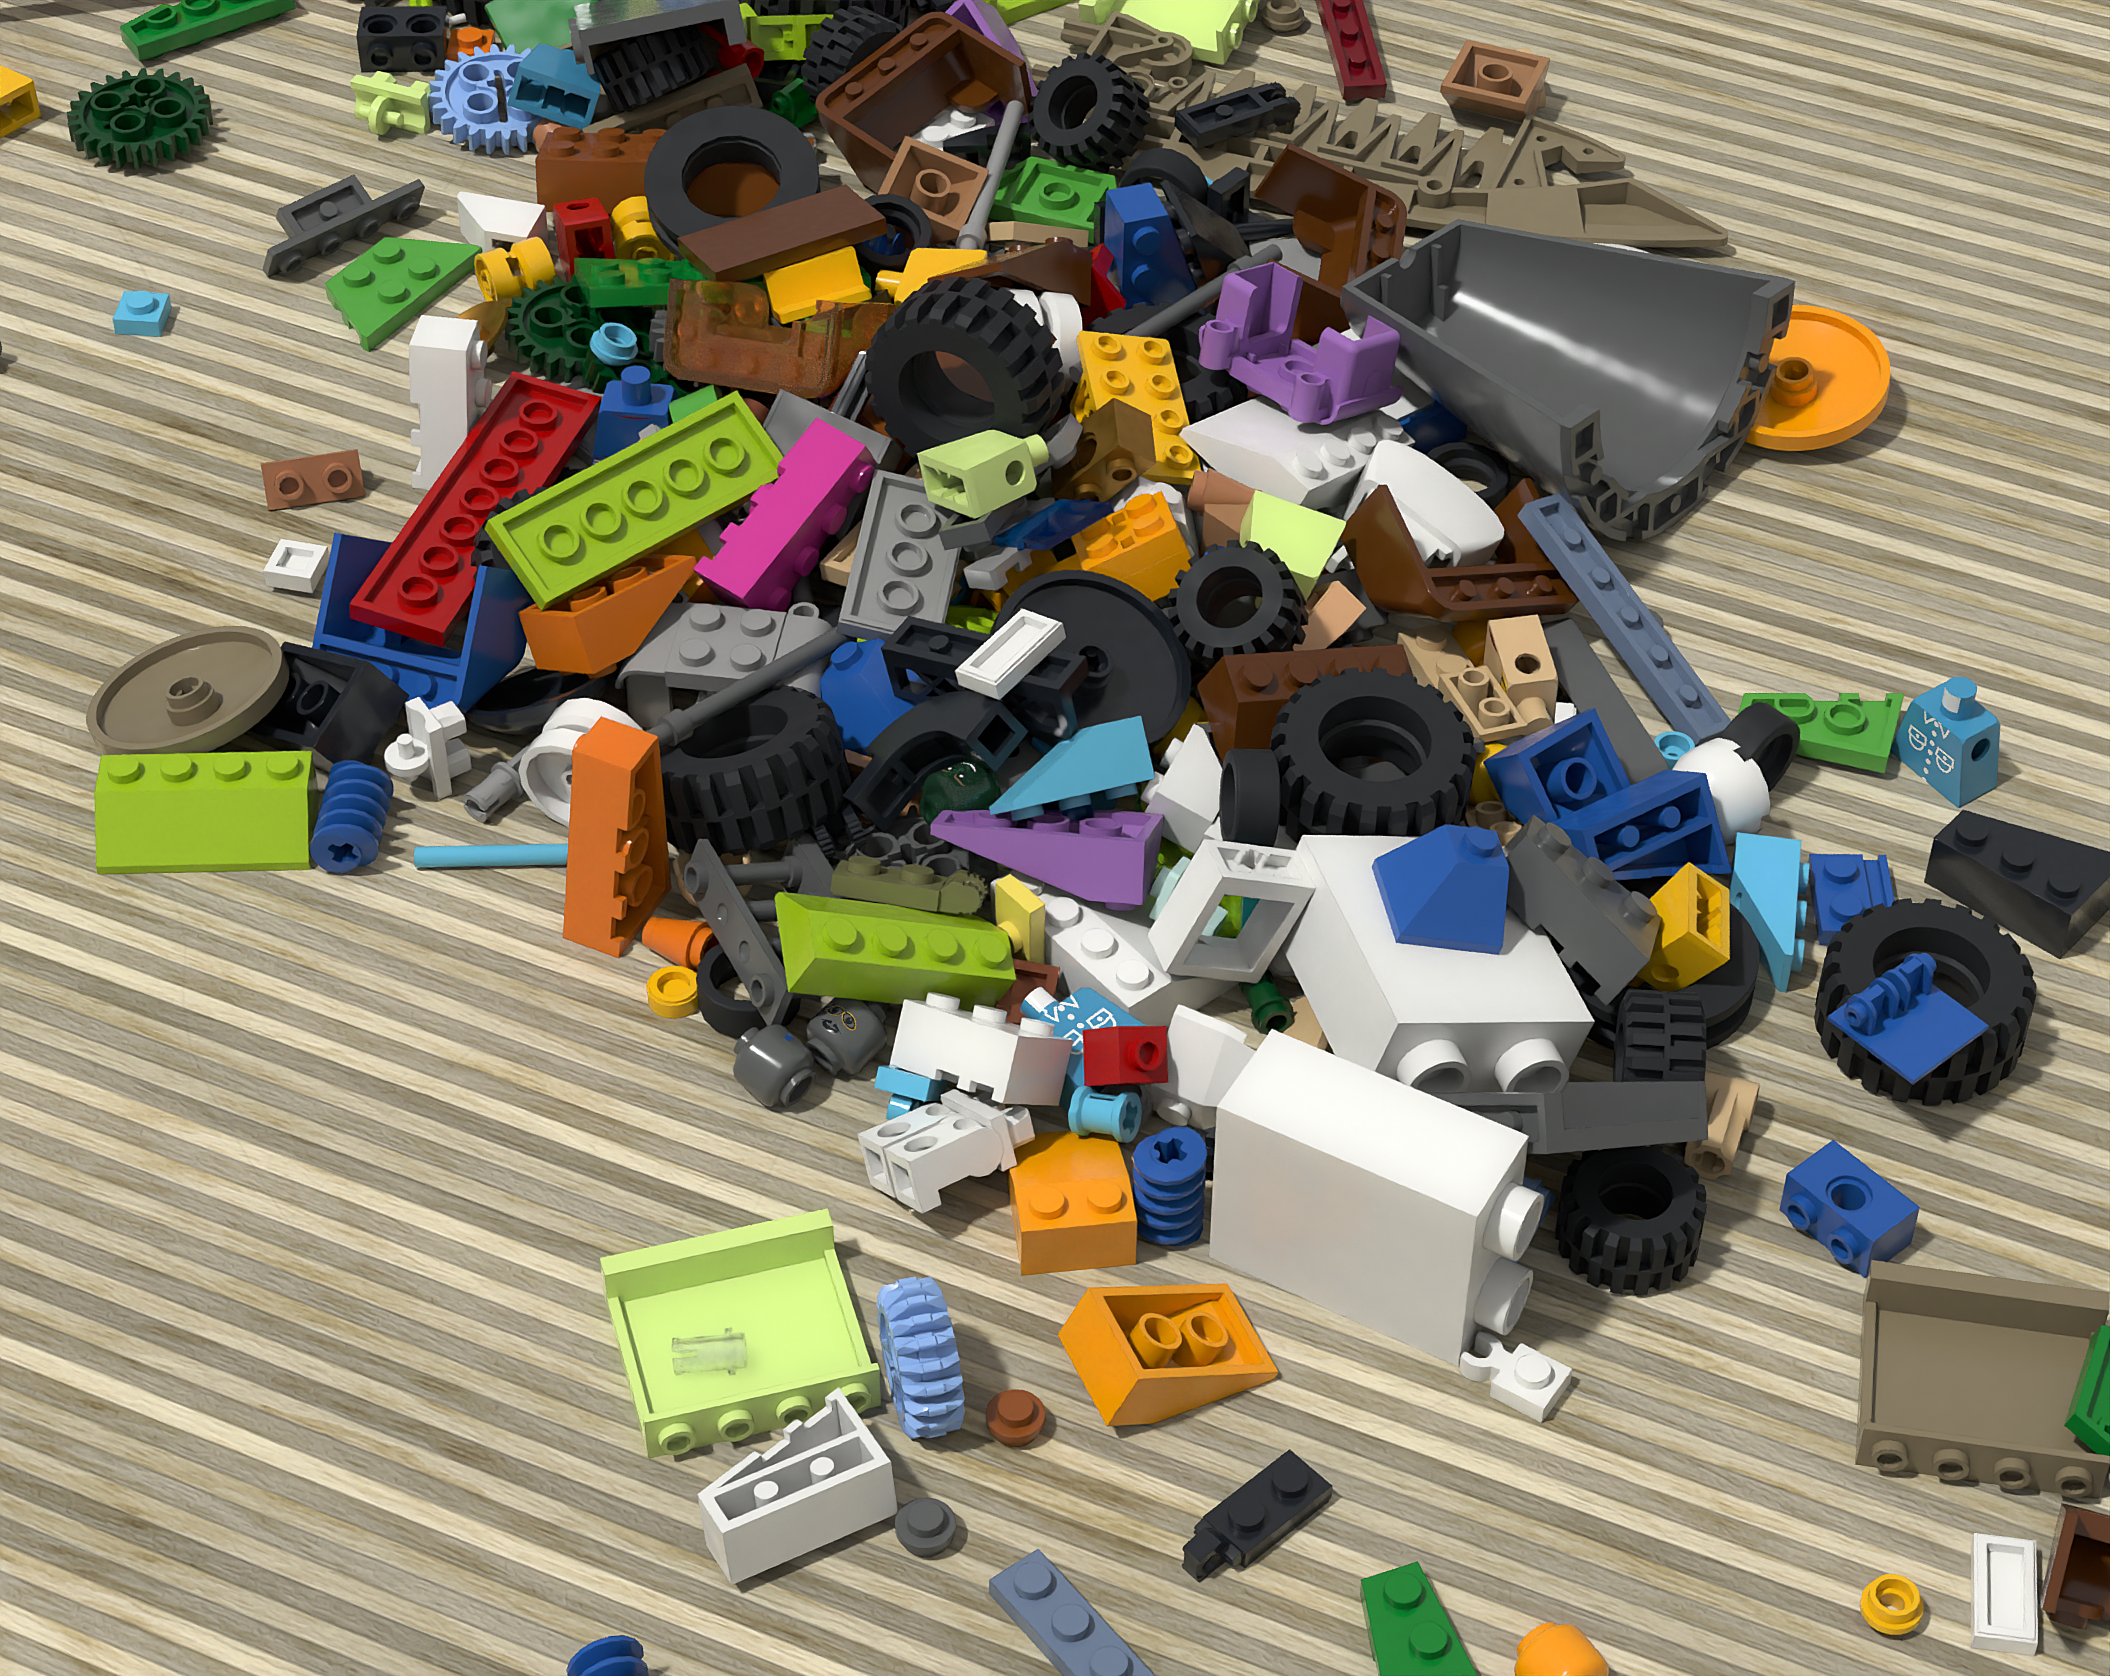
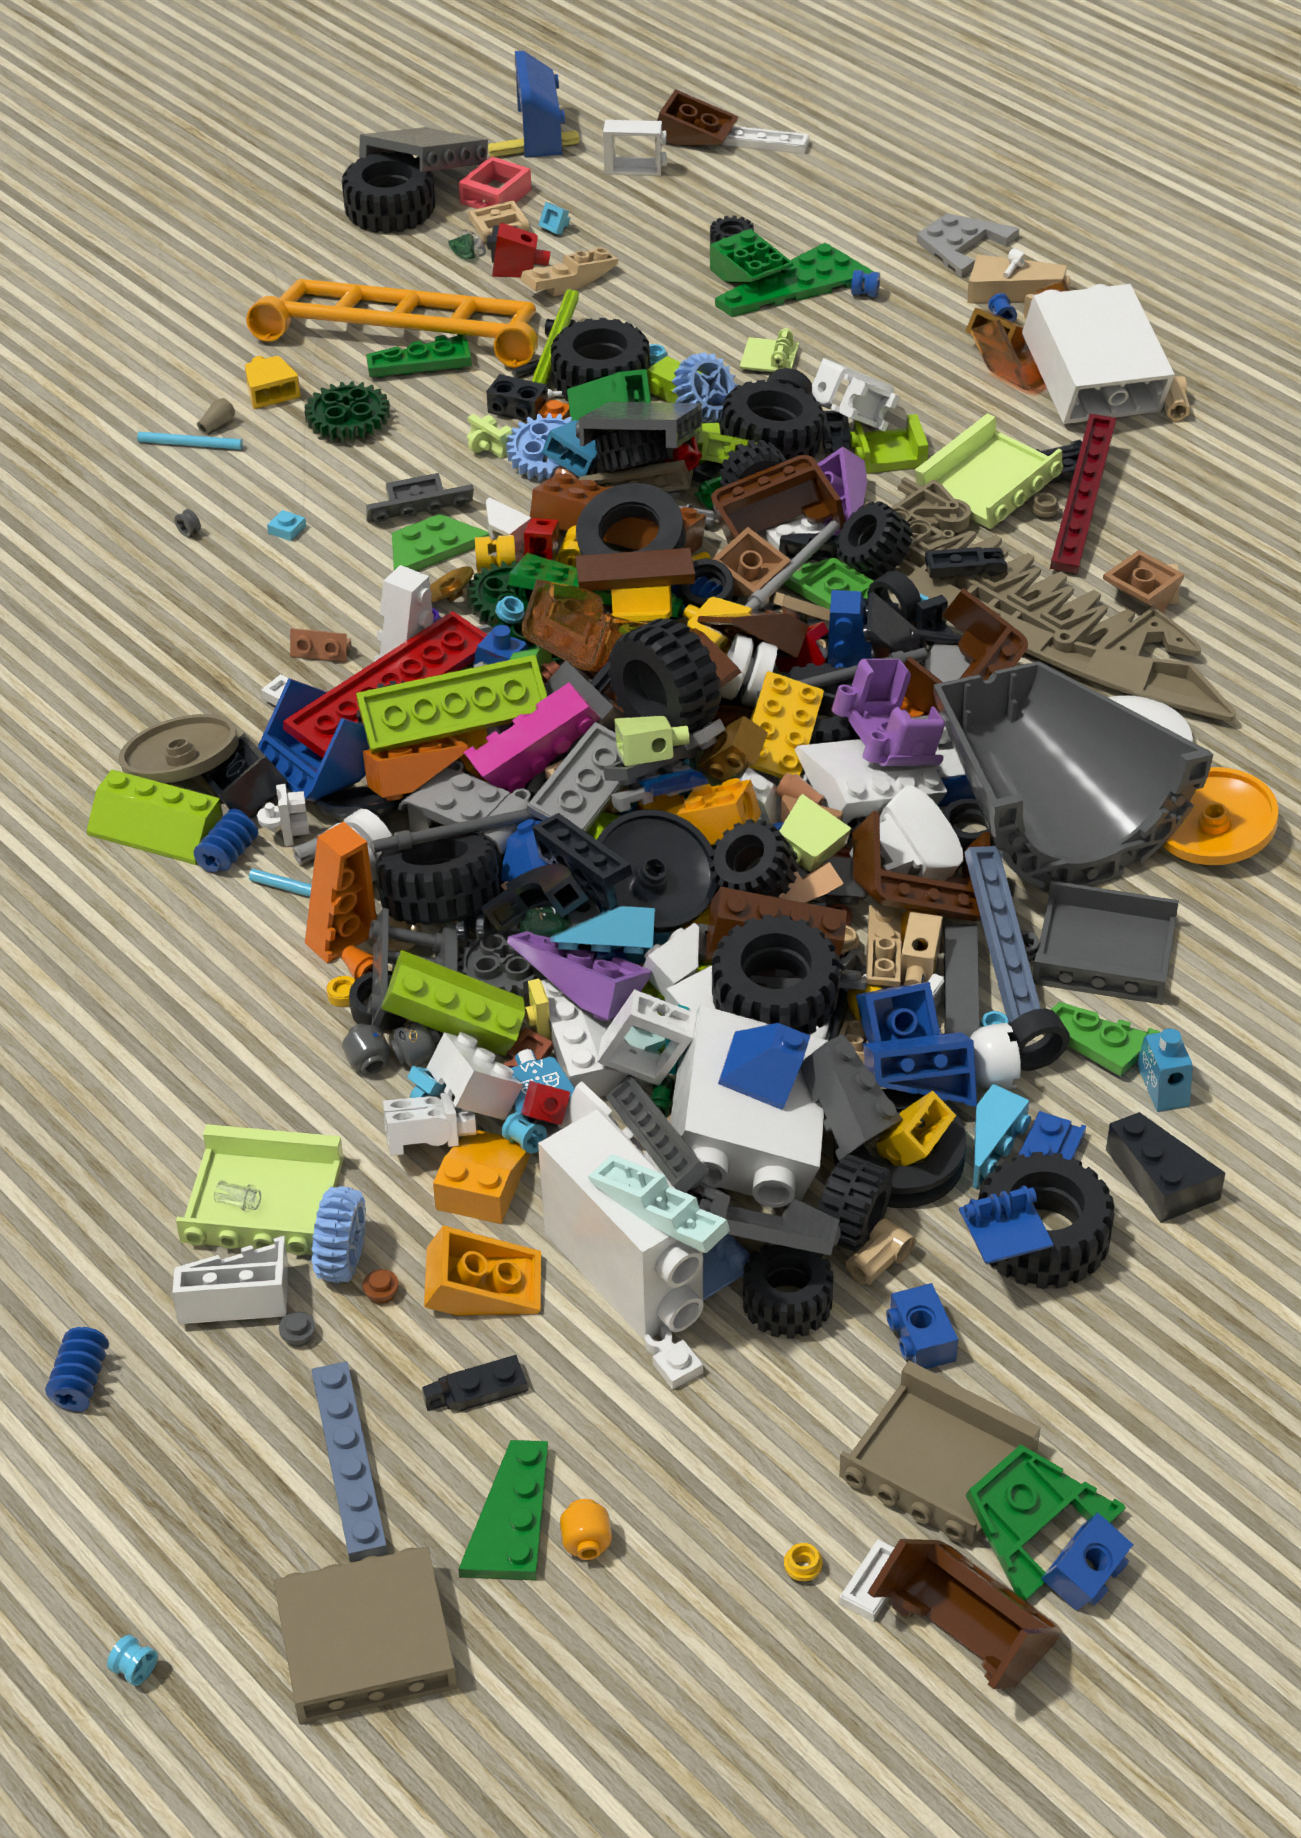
camera: 25 degrees right, 0 degrees up
(908, 887) = (486, 969): olive hinge -> none
(1010, 654) = (590, 850): white tile -> none
(1170, 1186) = (526, 1186): blue piece -> none
(1250, 797) = (690, 976): black tyre -> none
(1423, 1062) = (657, 1135): none -> dark grey plate
(1446, 1133) = (661, 1206): none -> light aqua slope
(1751, 592) = (1105, 942): none -> dark grey panel

